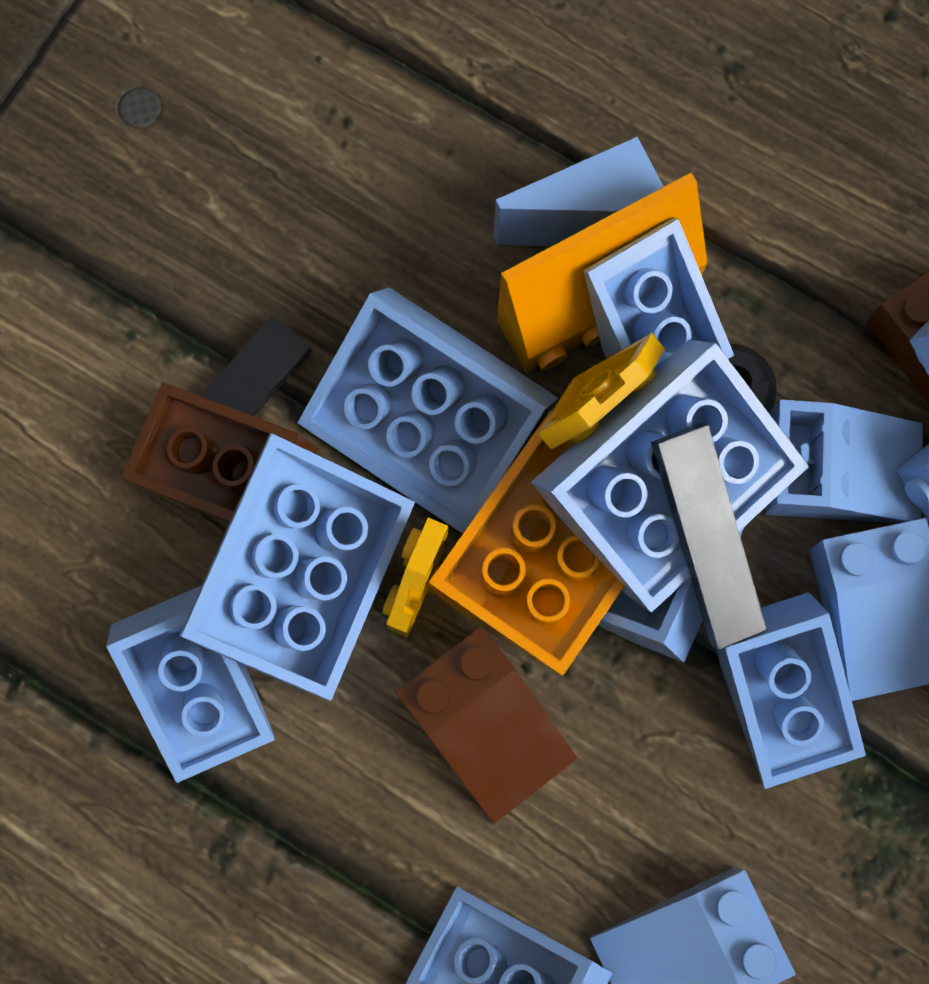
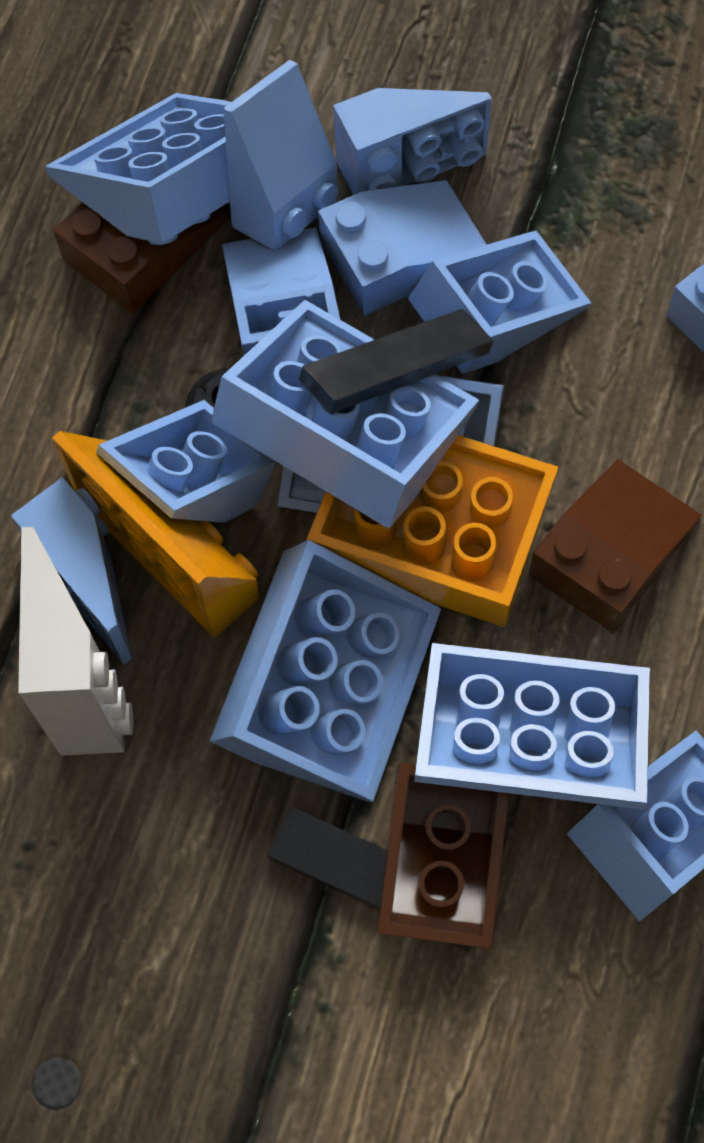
camera: 100 degrees left, 10 degrees down
(422, 558) = (500, 625): yellow plate -> none
(477, 147) = (60, 666): none -> white slope
(600, 390) = (283, 486): yellow plate -> none

